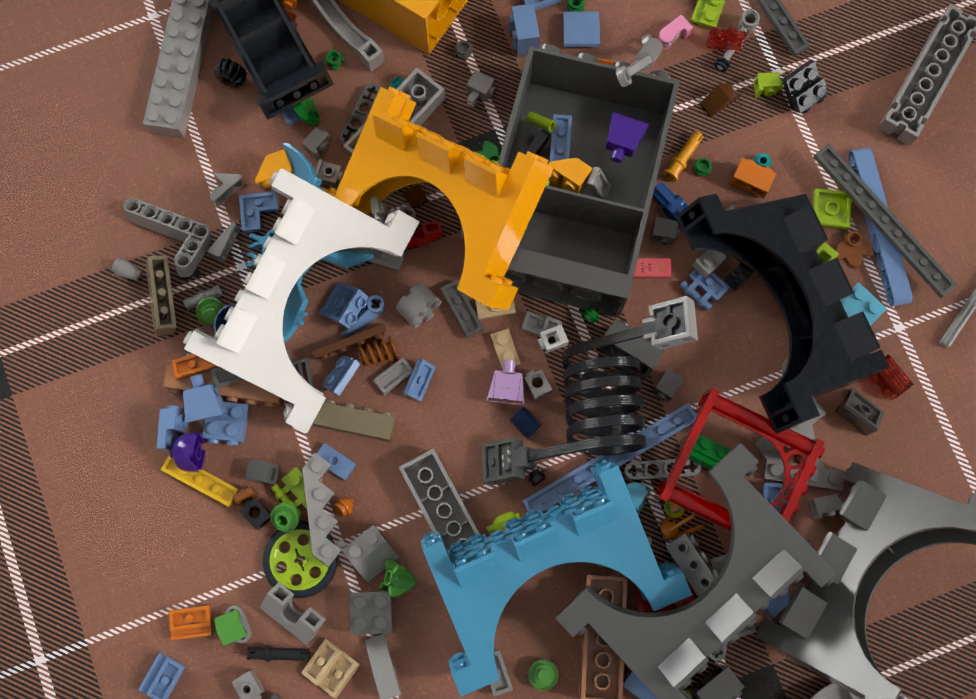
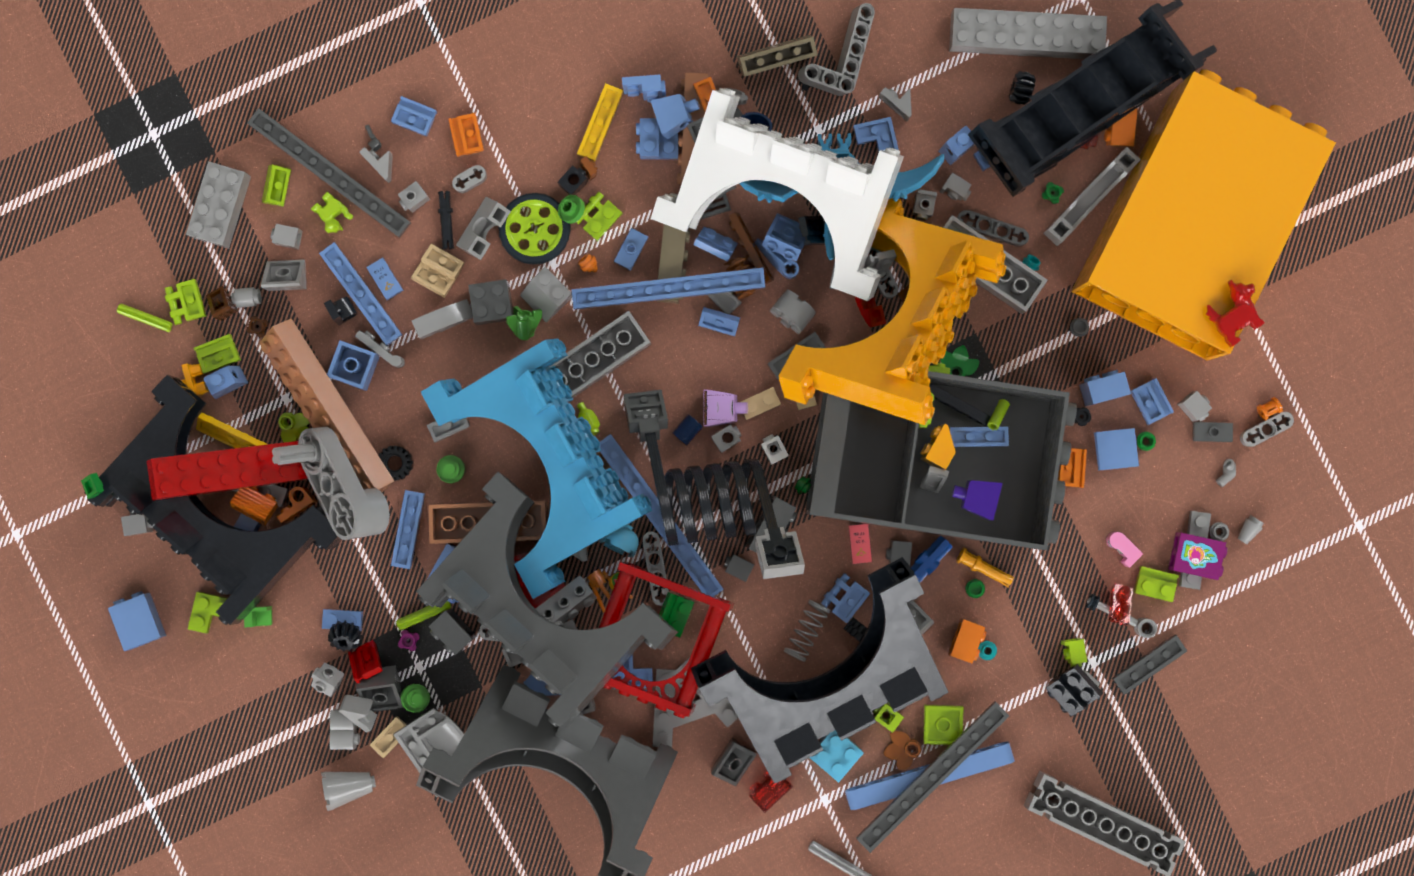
camera: 85 degrees right, 10 degrees up
(125, 269) = (801, 15): light grey cone -> none
(188, 453) = (622, 107): dark purple cylinder -> none
(193, 301) = (781, 97): light grey pin -> none
(208, 309) = (767, 104): bright green plate -> none
(223, 245) = (837, 109): light grey slope -> none
(229, 627) = (464, 171): bright green panel -> none
(262, 472) = (612, 180): dark grey brick -> none
(271, 163) = (920, 148): light orange slope -> none
(274, 133) = (958, 145): none -> medium blue torso
(308, 112) = (986, 175): green plate -> none
(319, 521) = (569, 242): light grey brick -> none
(339, 276) = (812, 229): none -> black plate
(380, 425) = (668, 288): none -> medium blue plate
(479, 87) = (1037, 348): light grey brick -> none
(535, 323) = (789, 433): light grey slope -> none
(537, 476) = (635, 446): black plate -> none
(643, 60) = (1071, 513): light grey piece -> none
(709, 262) = (864, 597): light grey slope -> none
(712, 312) = (796, 654): none -> light grey piece
(719, 99) = (1053, 602): reddish brown slope -> none
(825, 505) = (635, 729): light grey brick -> none

